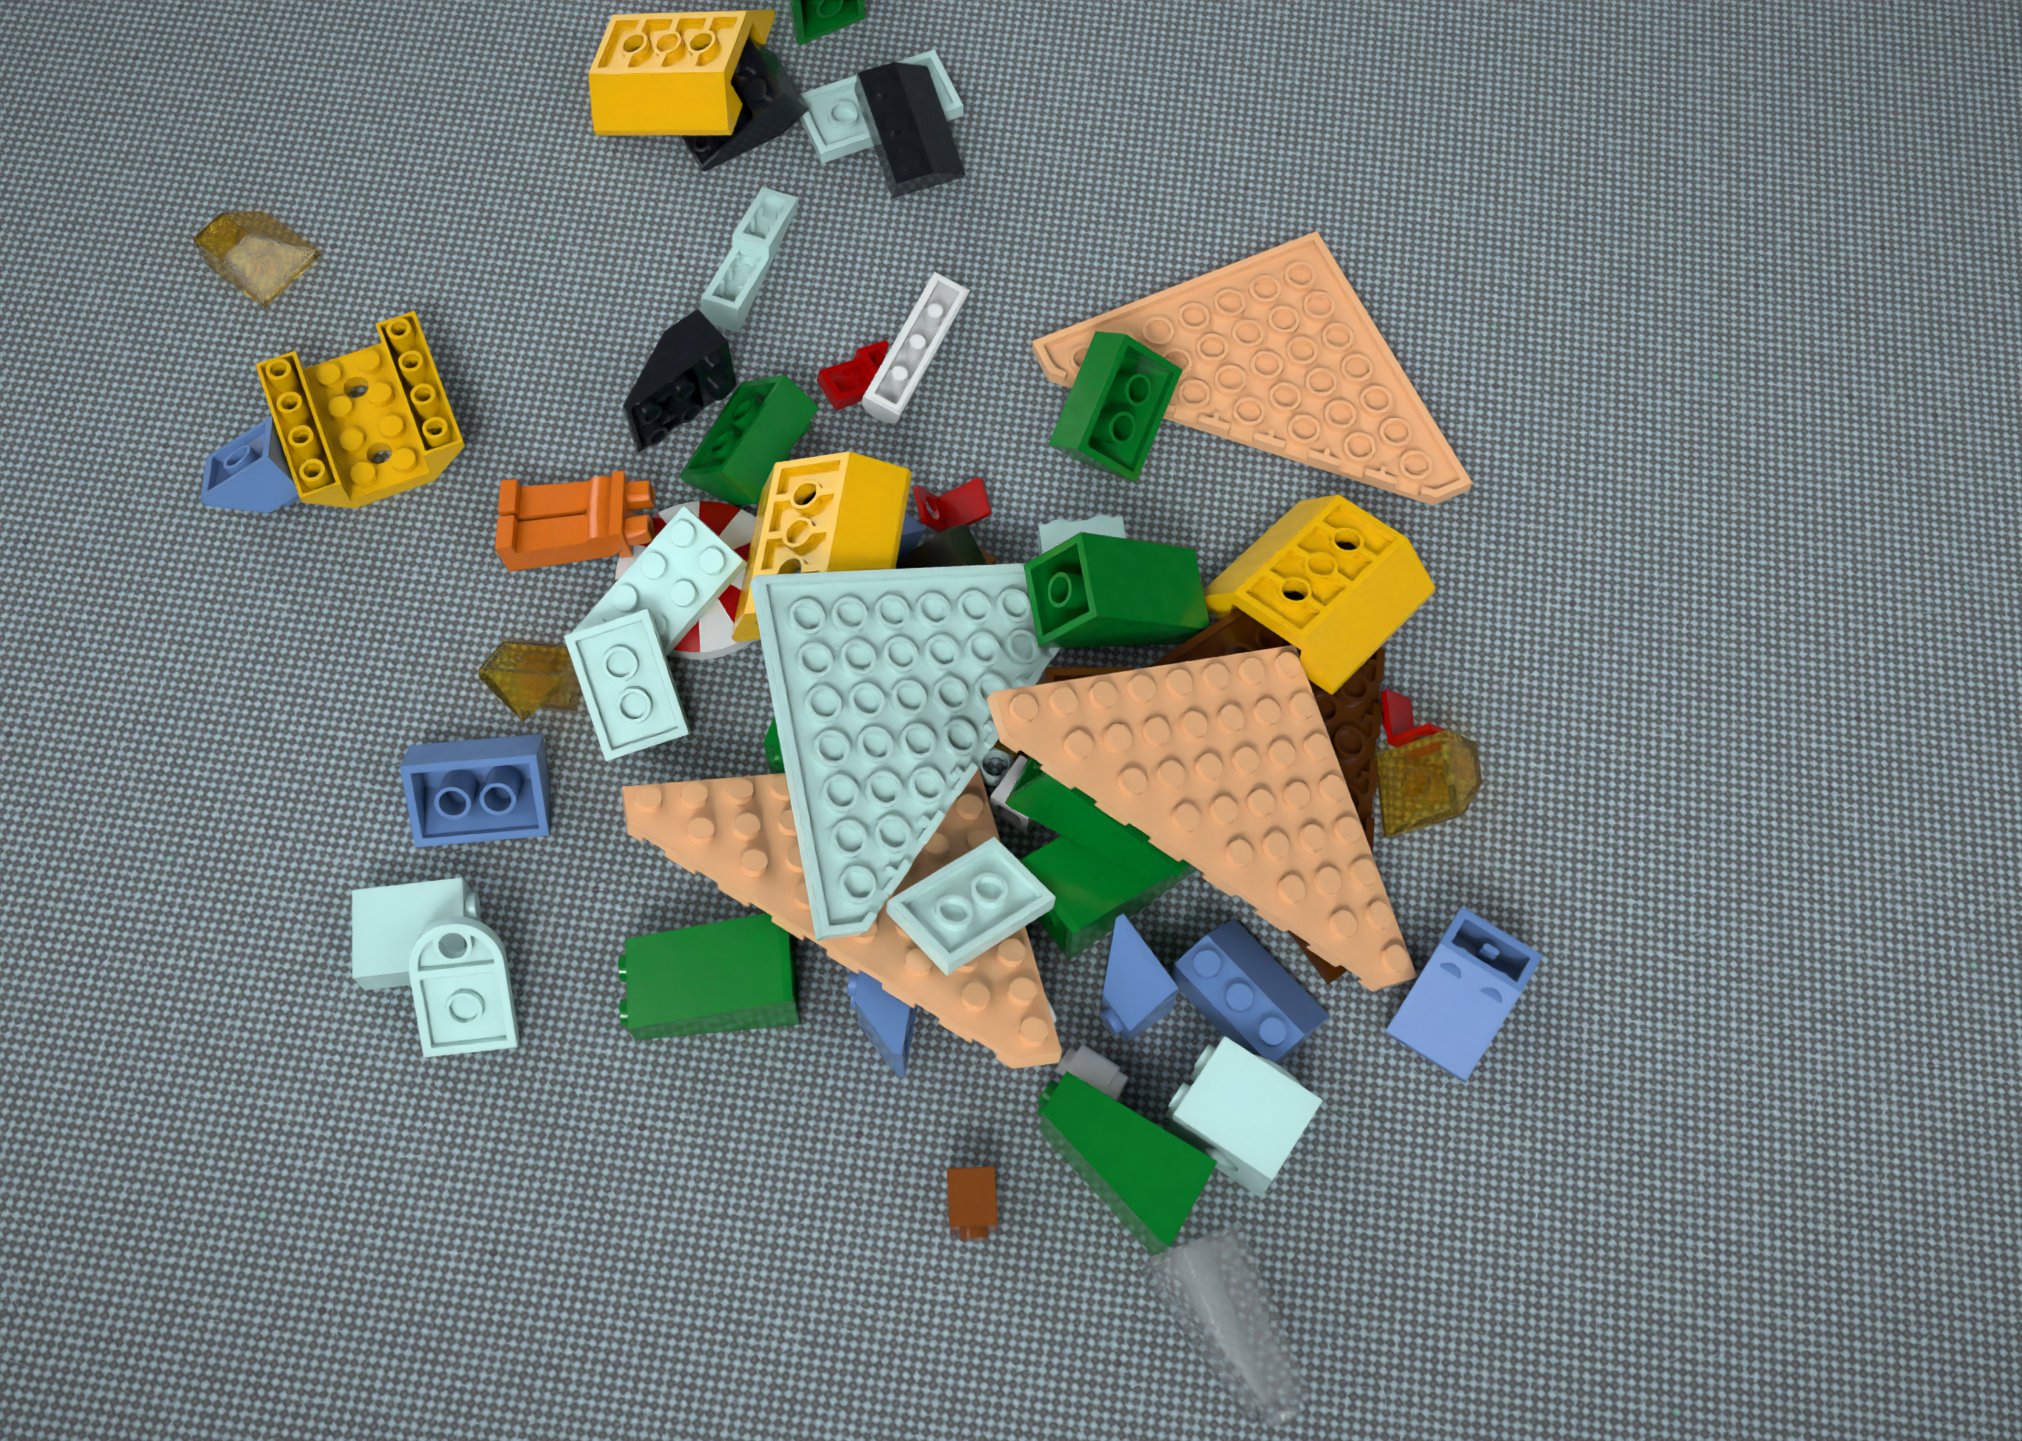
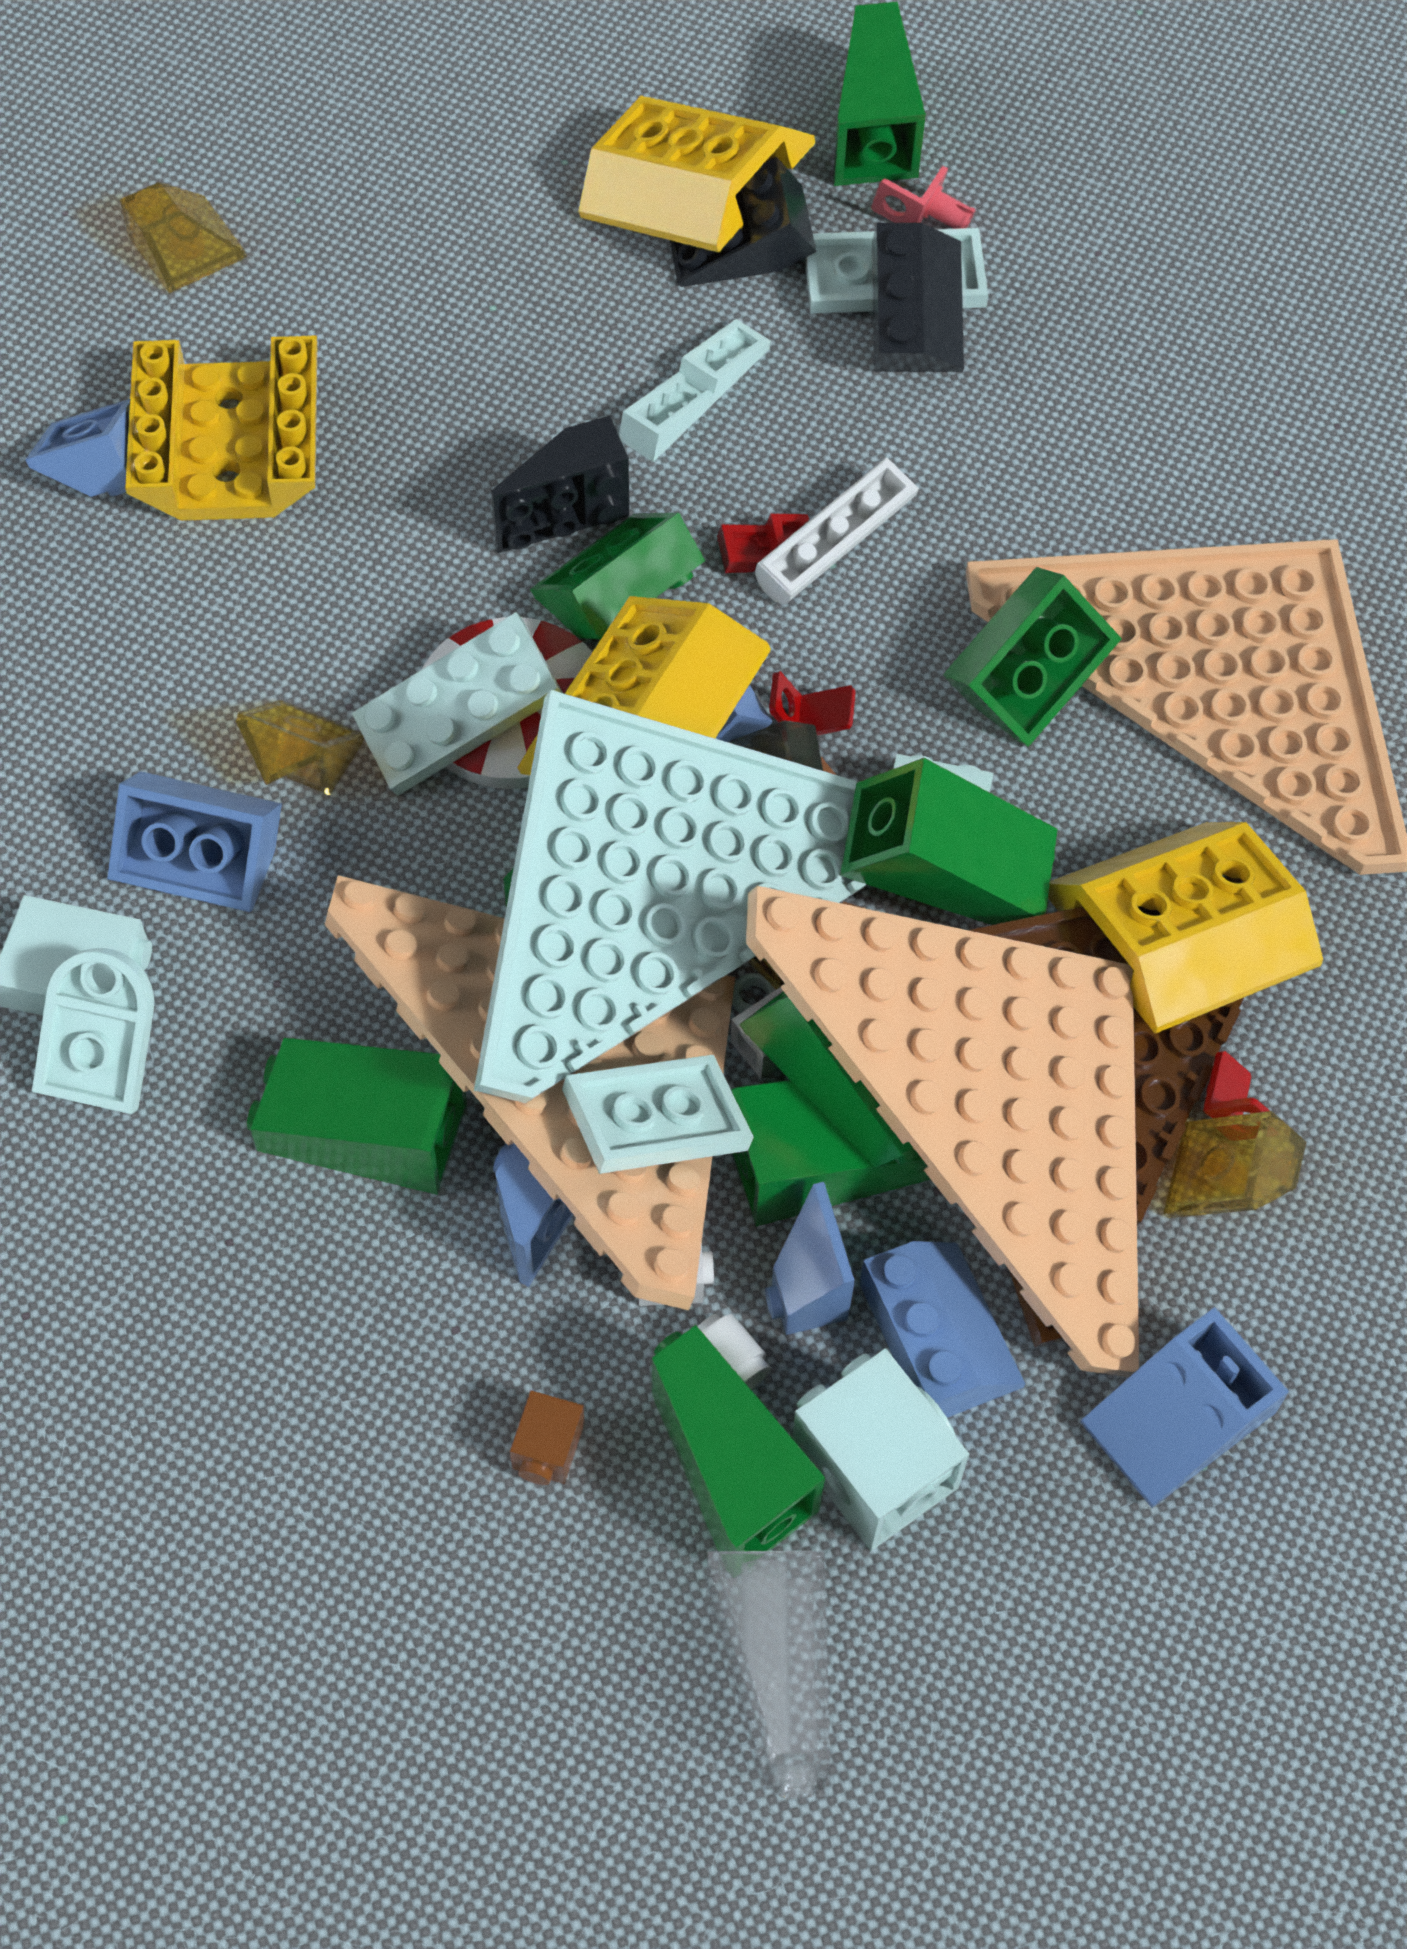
camera: 20 degrees right, 5 degrees down
(572, 521) = (397, 597): orange hips -> none
(627, 684) = (389, 780): light aqua plate -> none
(890, 38) = (933, 203): none -> coral bracket

